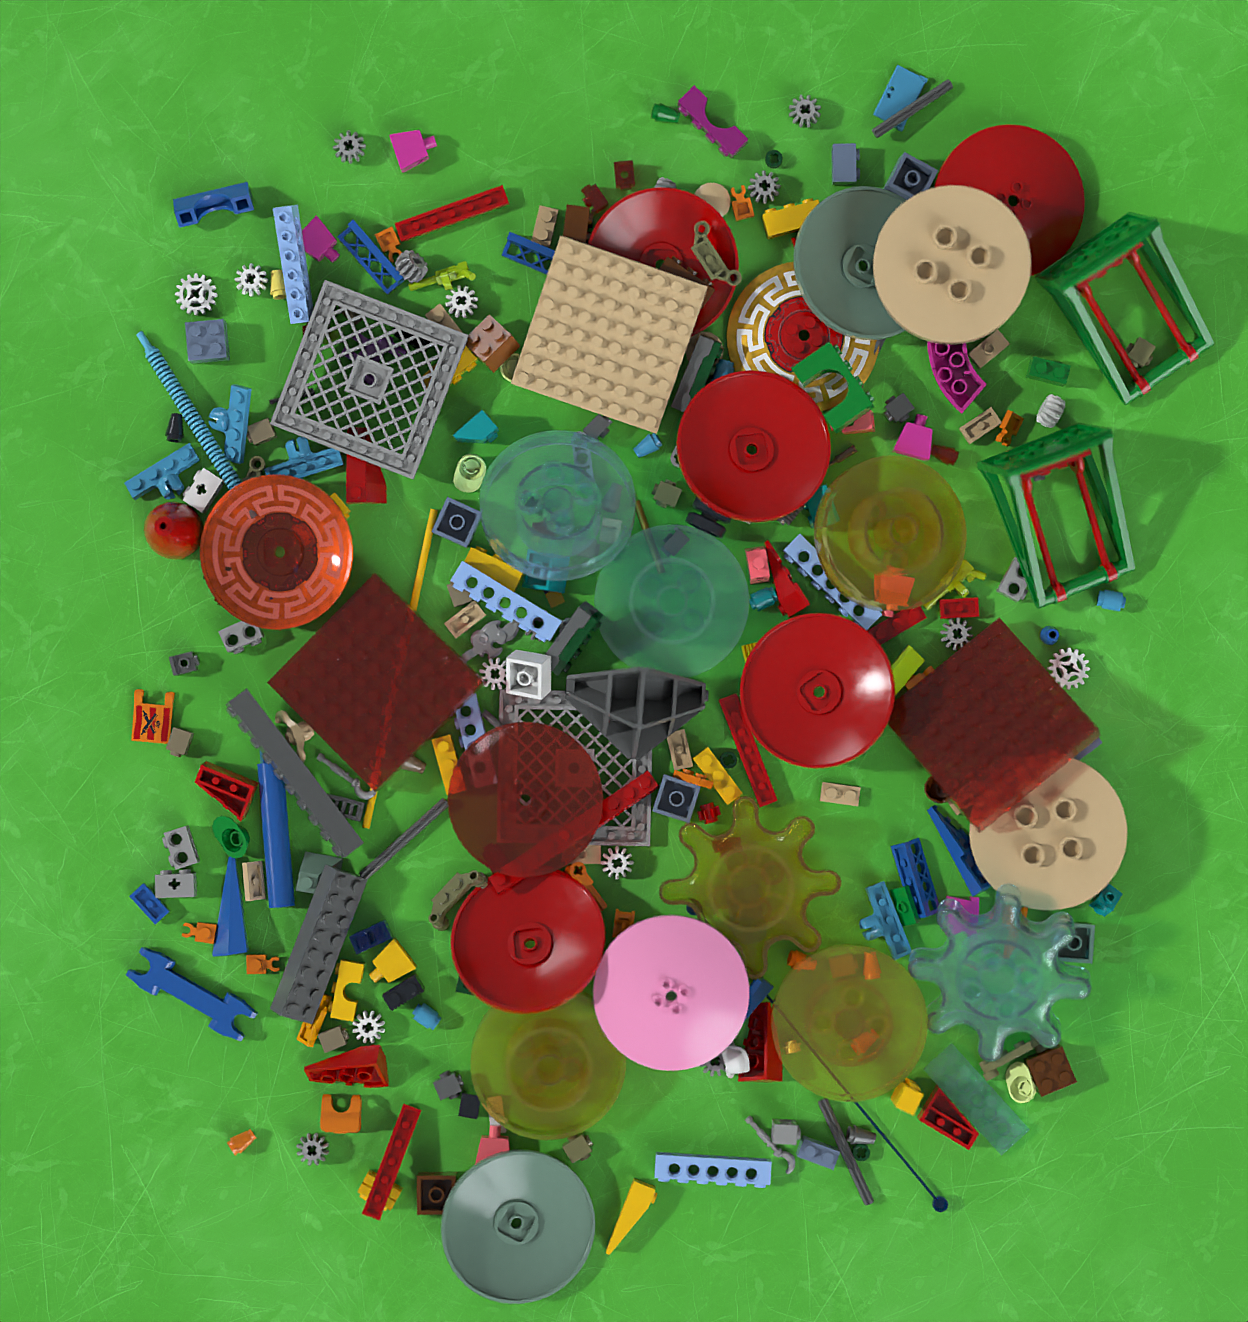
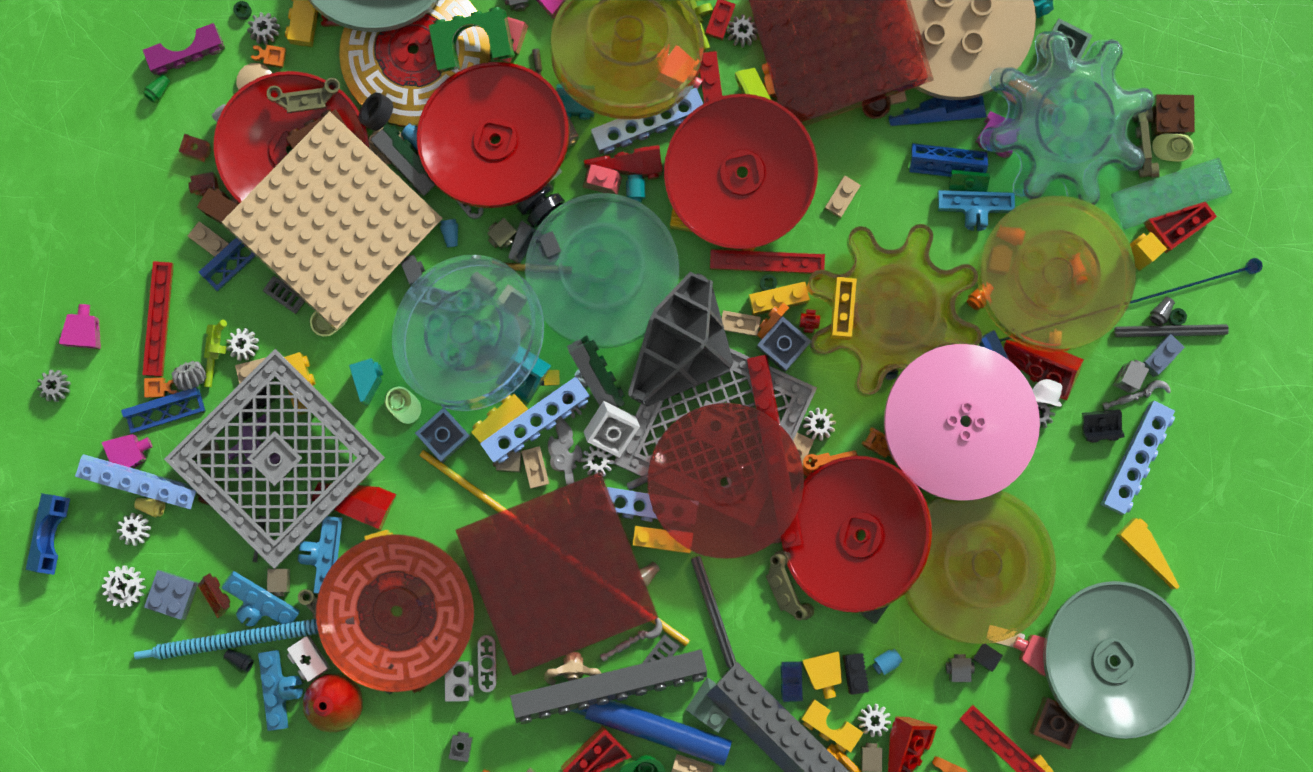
camera: 70 degrees left, 5 degrees down
(219, 385) = (216, 599): none -> clear red plate
(280, 642) = (480, 669): none -> light grey beam
(491, 343) = (293, 331): dark orange brick -> none
(524, 302) = (271, 284): none -> dark grey slope
(578, 1147) = (1067, 573): olive brick -> none
(667, 516) = (521, 242): none -> dark grey slope
(727, 839) = (843, 308): none -> yellow brick
(728, 1124) = (1102, 425): none -> black bracket
(729, 336) = (376, 111): none -> black tyre

